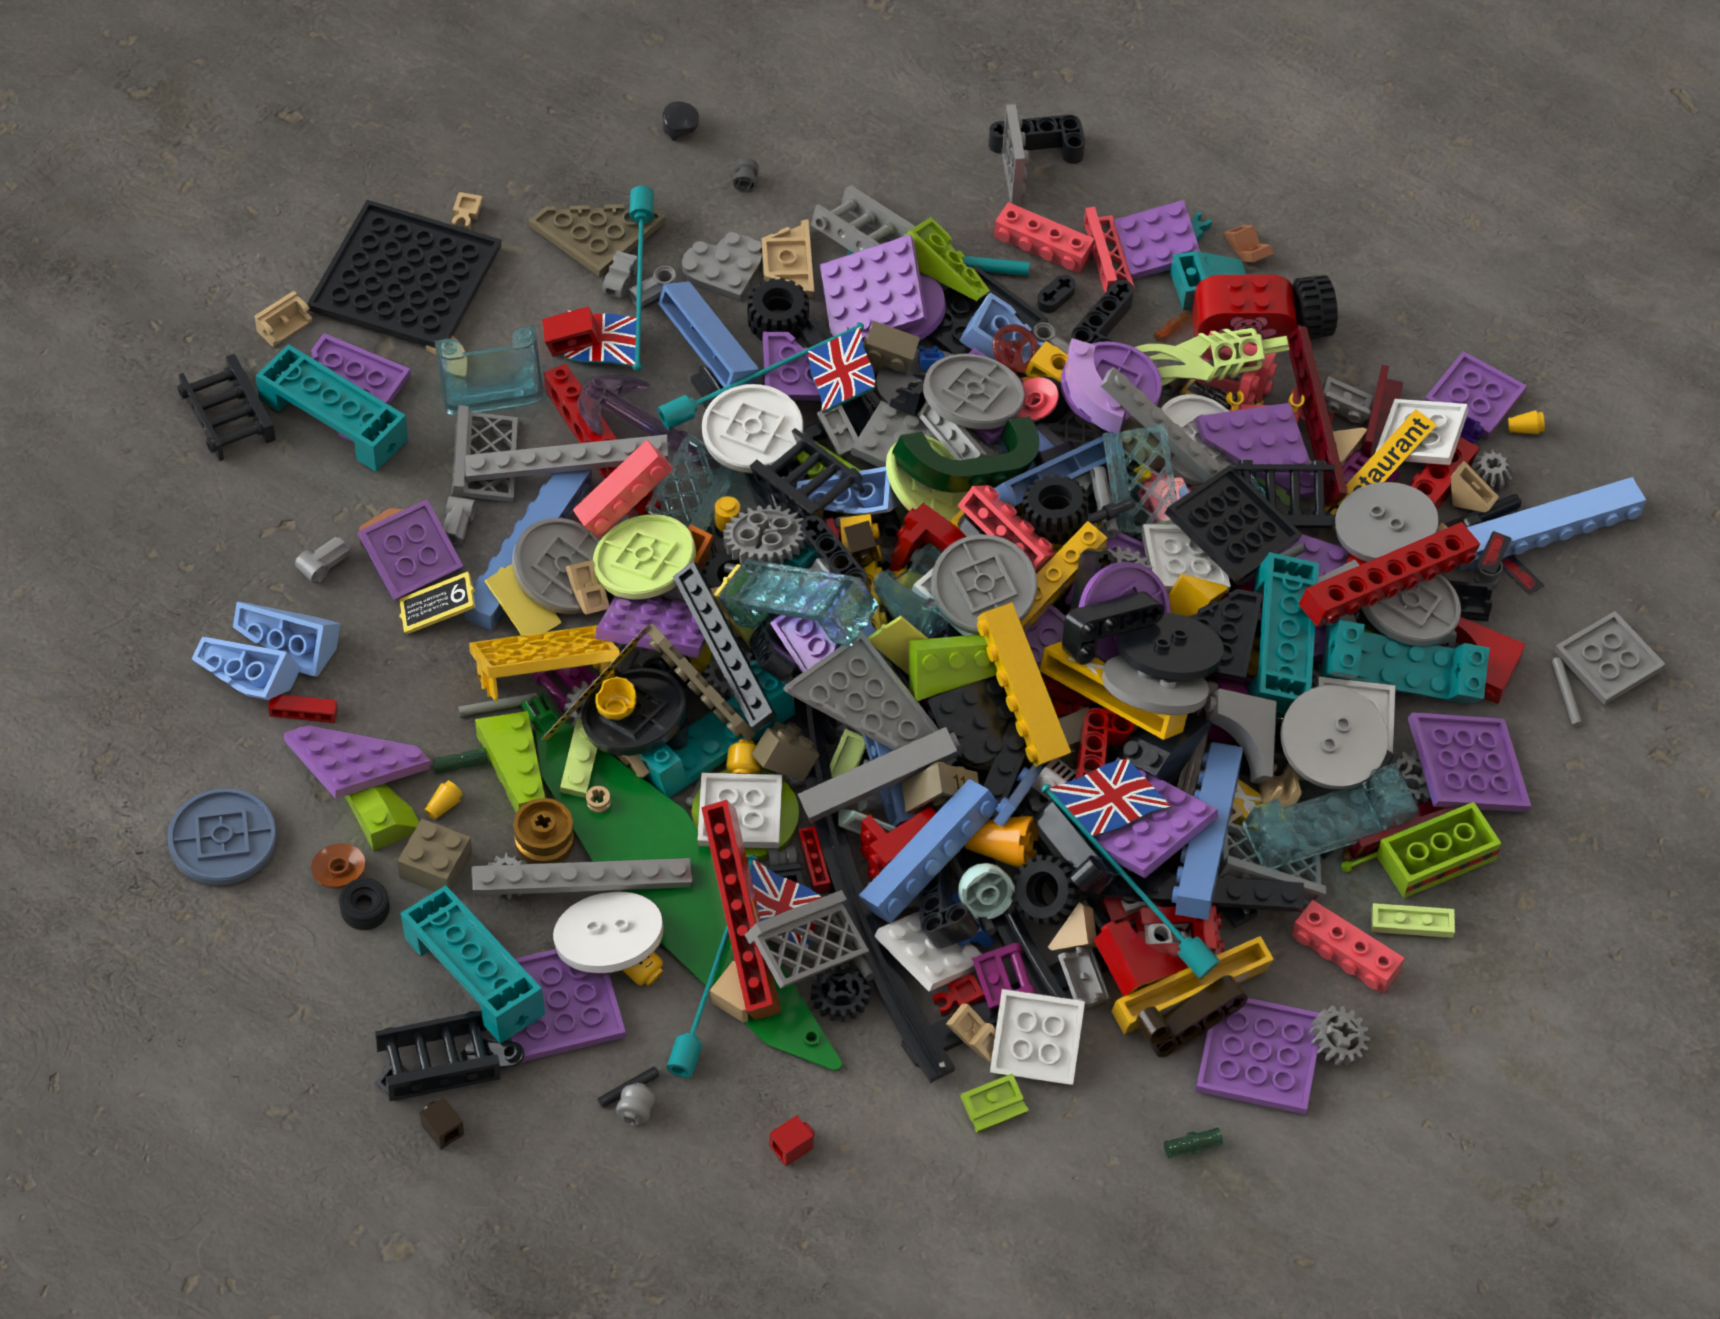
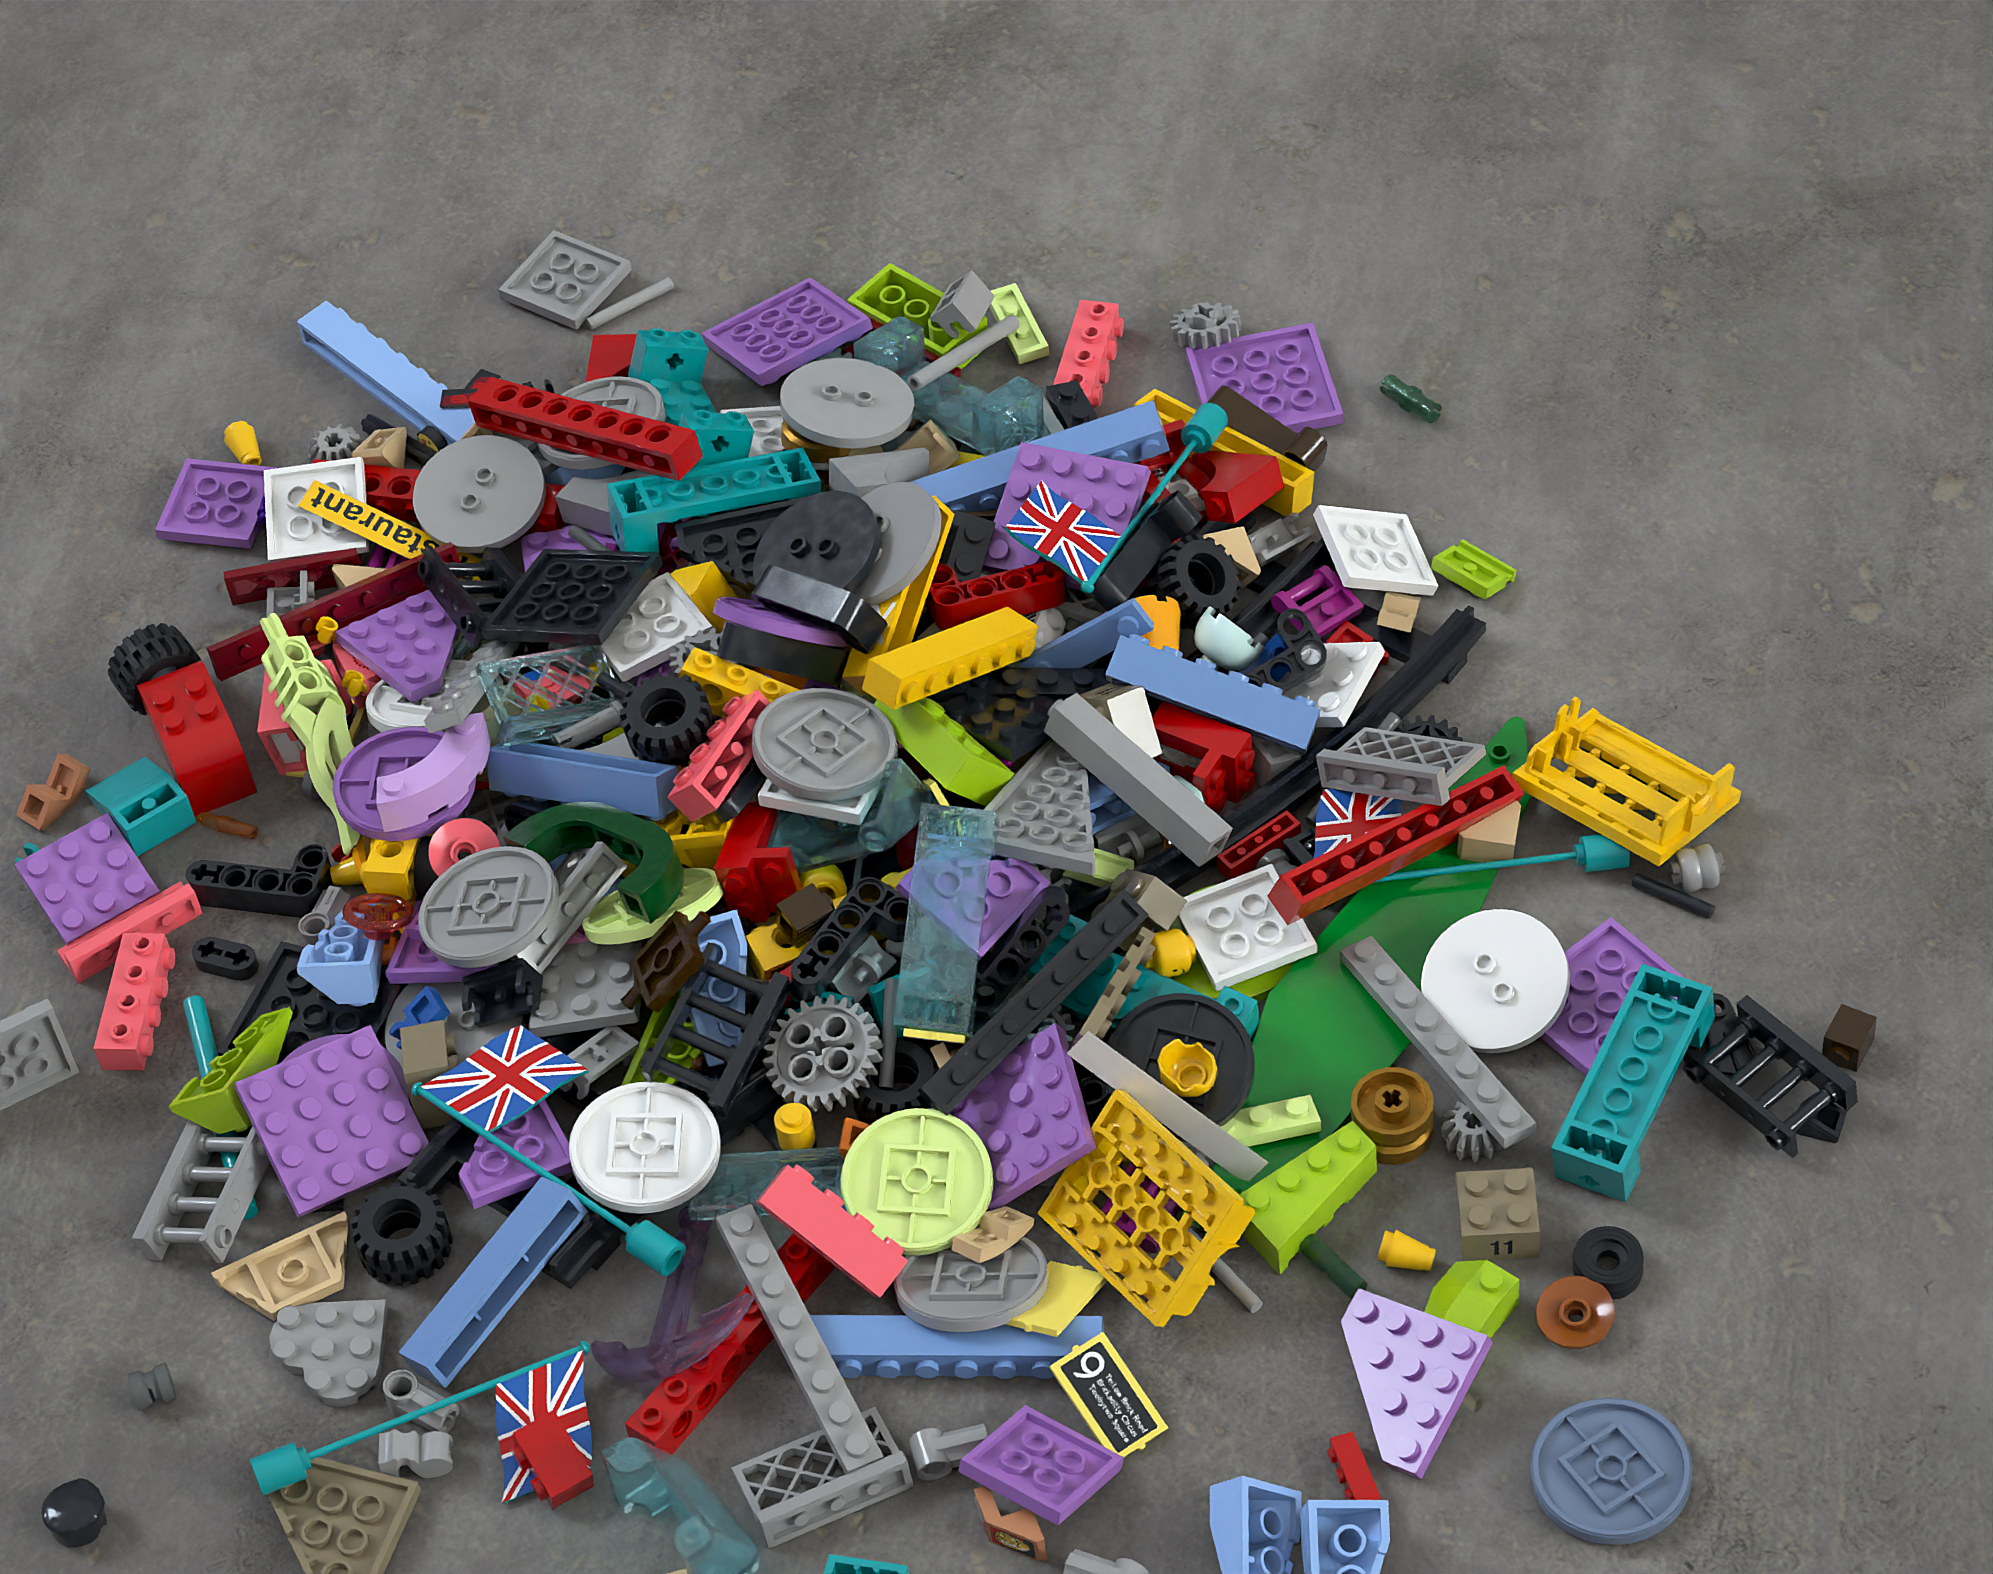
camera: 105 degrees left, 5 degrees down
(598, 807) = (1305, 1073): tan bush -> none
(715, 1059) = (1700, 795): none -> yellow piece
(791, 1140) = (1643, 713): red brick -> none
(857, 452) = (666, 961): none -> dark brown plate
(1372, 849) = (963, 353): none -> light grey piece
(1420, 864) = (963, 302): none -> light grey hinge

